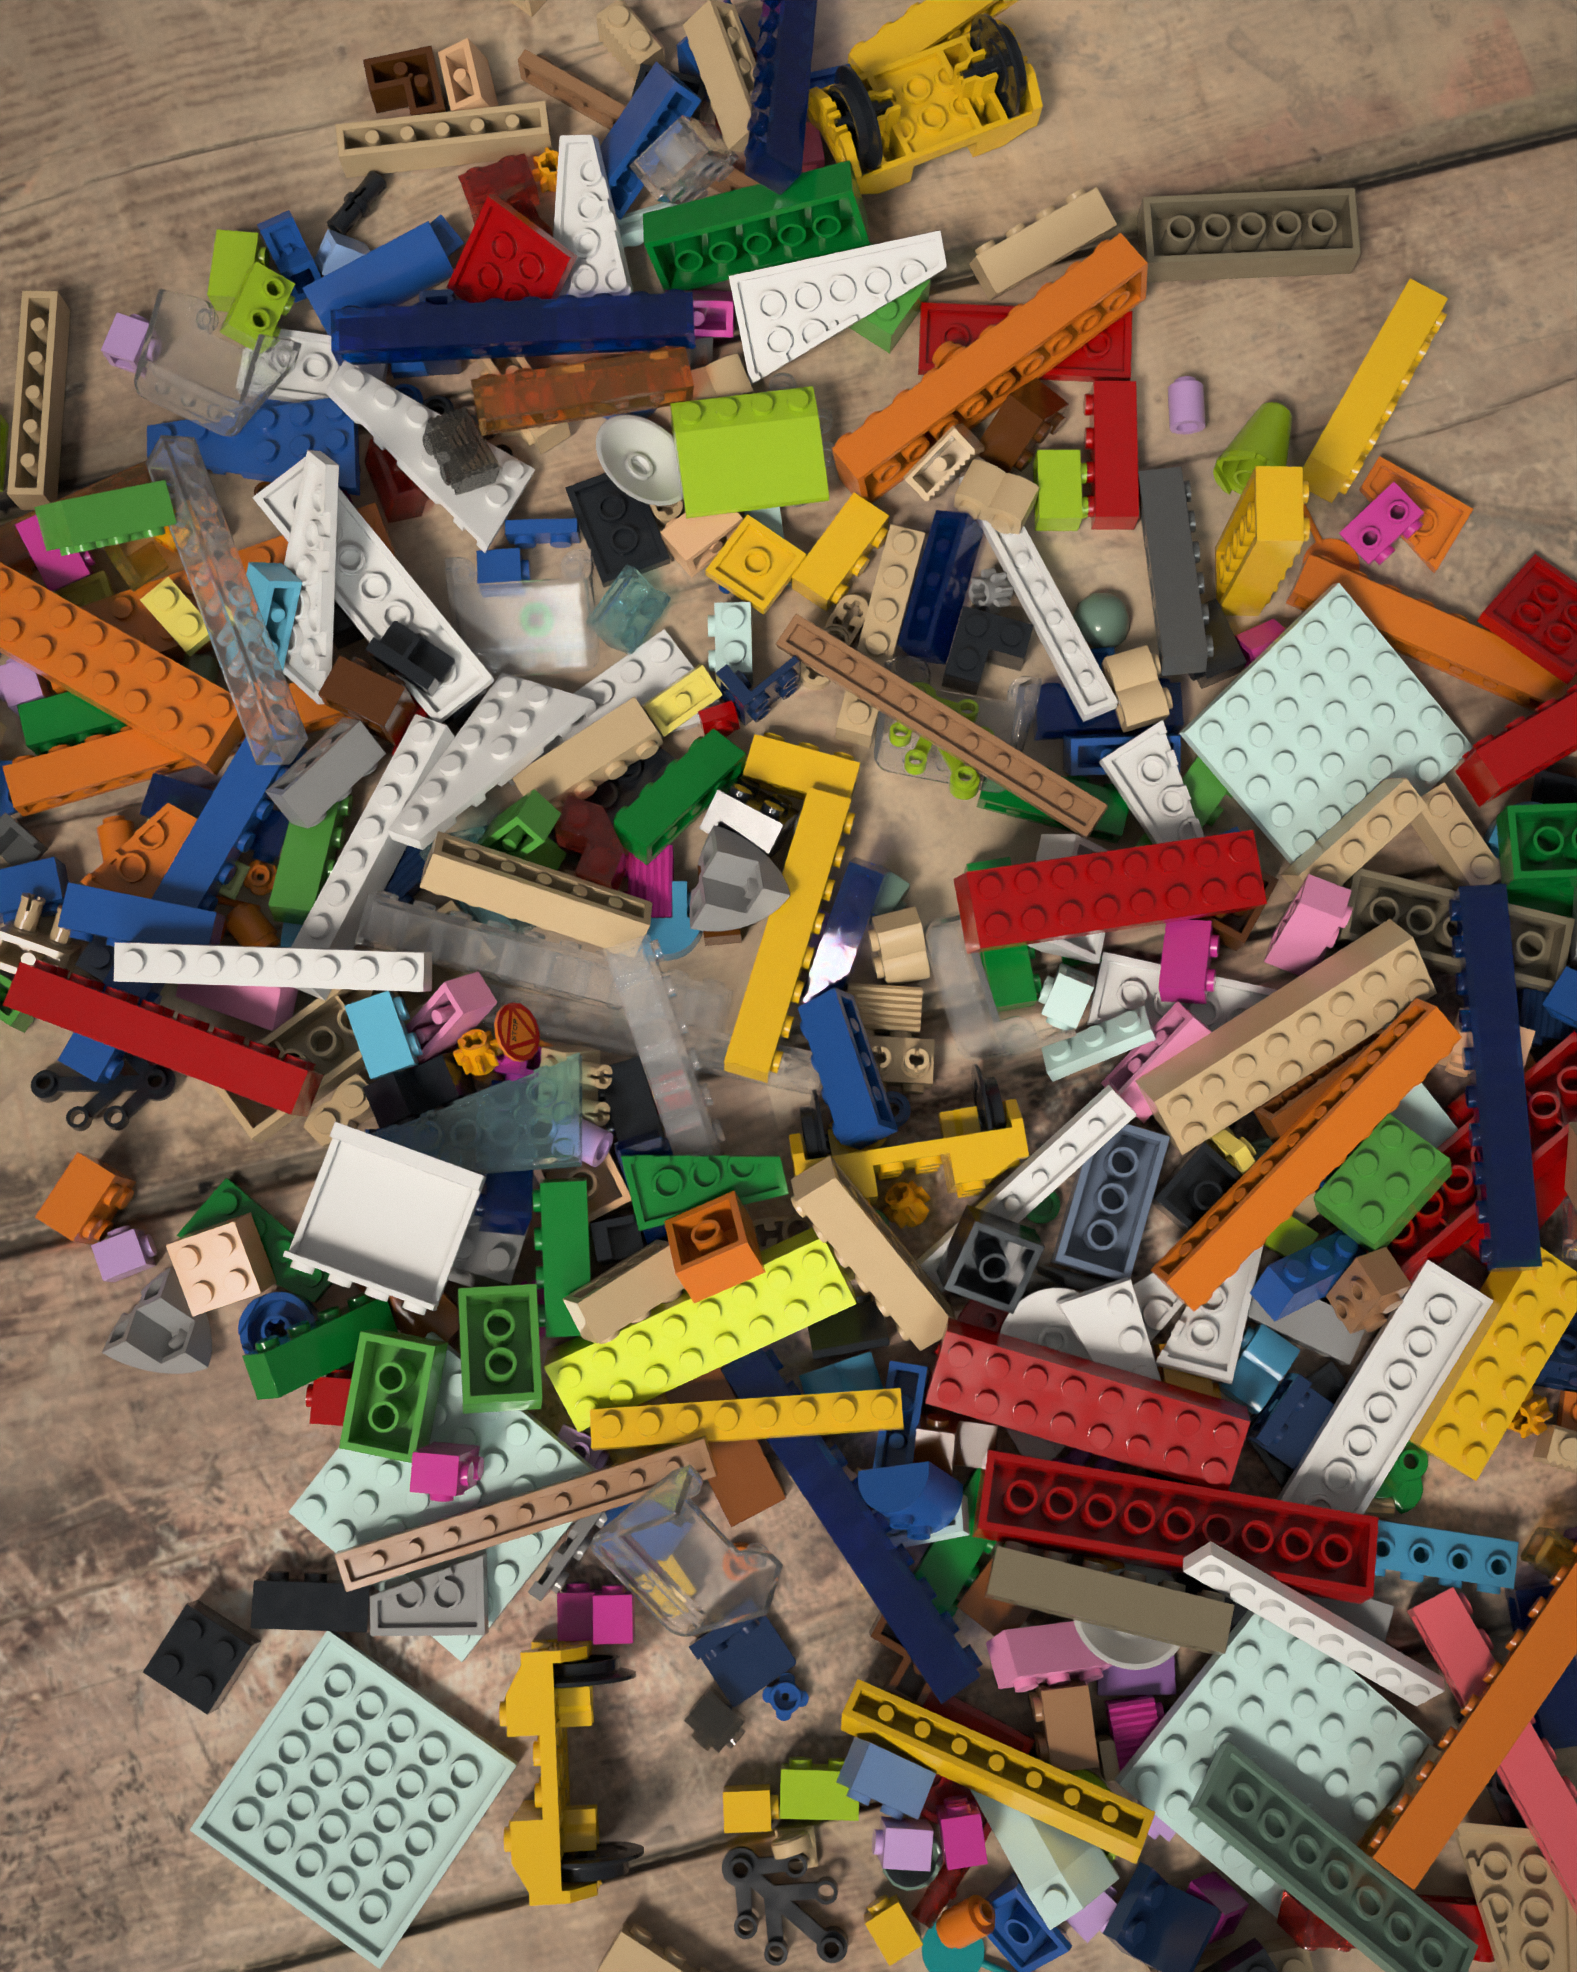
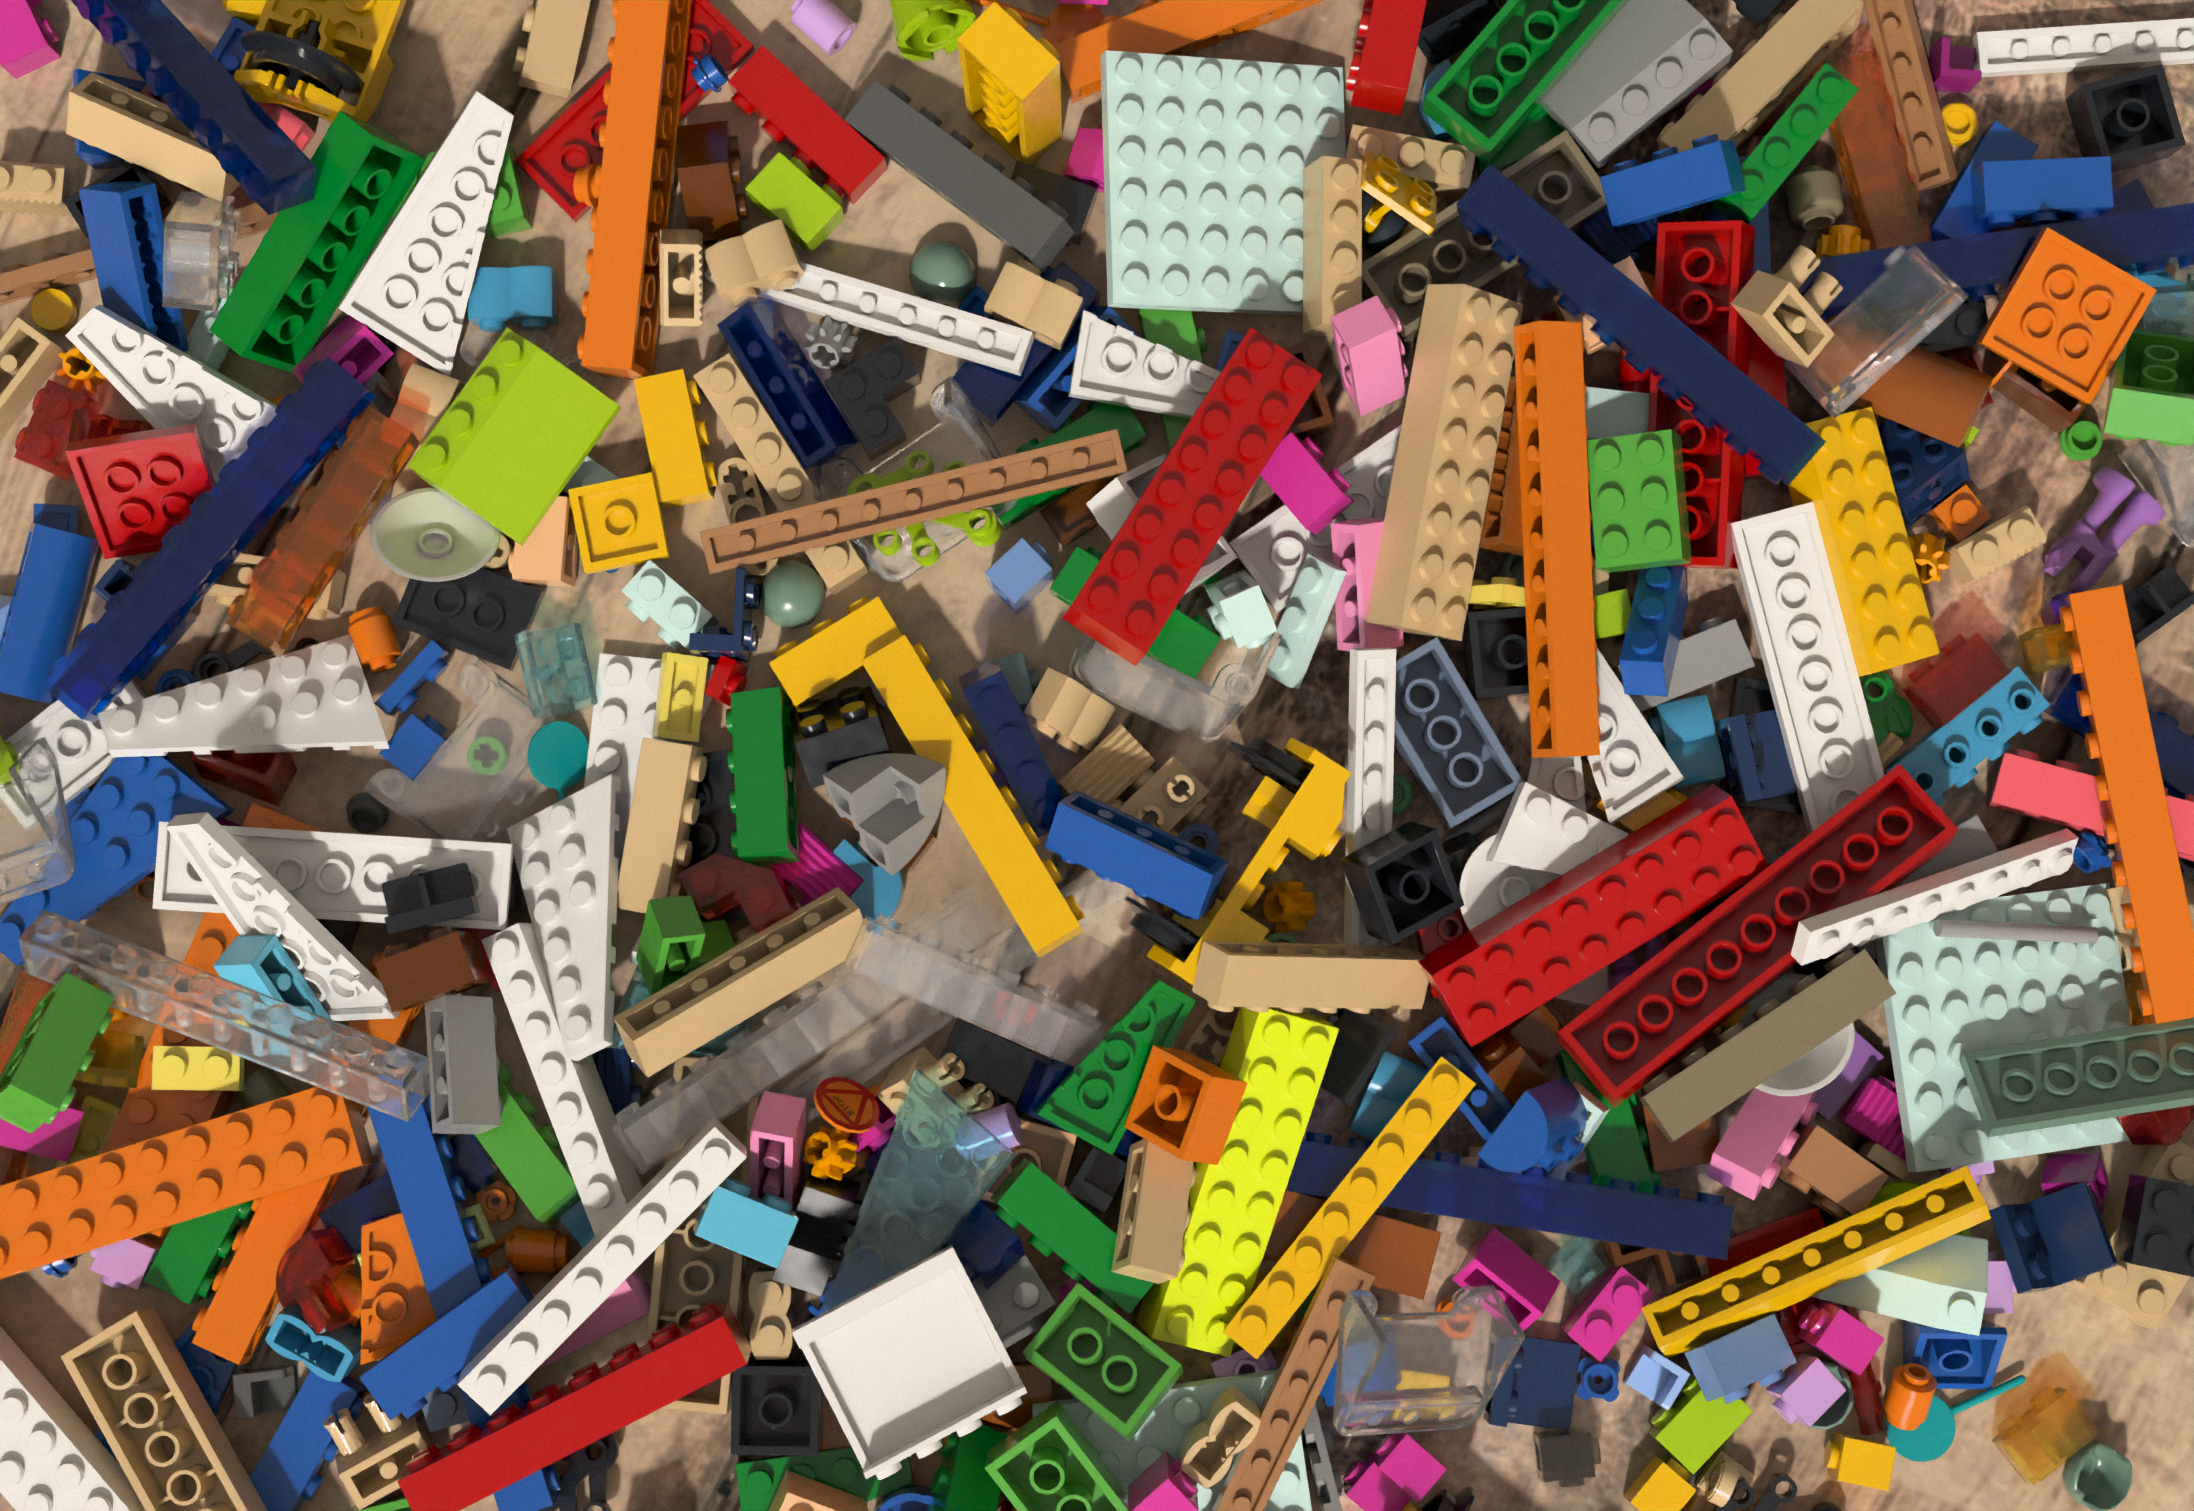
camera: 50 degrees left, 5 degrees up
(73, 842) = (325, 1354): none -> dark azure brick
(105, 801) = (308, 1275): none -> clear red brick
(281, 1168) = (776, 1409): none -> black brick
(432, 579) = (366, 813): none -> dark grey plate
(460, 451) = (280, 688): clear smoke brick -> none
(512, 1469) = (1228, 1430): none -> tan brick
(545, 487) = (374, 639): none -> orange brick
(570, 121) = (53, 310): none -> yellow tile
(576, 661) = (558, 756): none -> teal piece
(802, 1575) = (1515, 1275): none -> dark pink brick
(811, 712) = (792, 594): none -> sand green hair
(821, 1734) = (1656, 1377): none -> light blue panel
(835, 1660) = (1607, 1311): none -> dark pink brick
(836, 378) = (514, 297): none -> dark azure brick
(847, 1612) = (1576, 1265): none -> clear light blue tile
(958, 837) = (1020, 574): none -> medium blue brick
(1024, 836) = (1070, 515): none -> reddish brown tile
(1087, 365) = (709, 73): none -> blue plate
(1342, 1704) = (2015, 931): none -> light grey bar
(1368, 1291) = (1713, 596): medium nougat brick -> none
(1423, 856) = (1396, 202): none -> yellow plate
(1442, 1710) = (2091, 853): none -> blue plate
(1467, 1509) = (1955, 680): none -> clear red brick

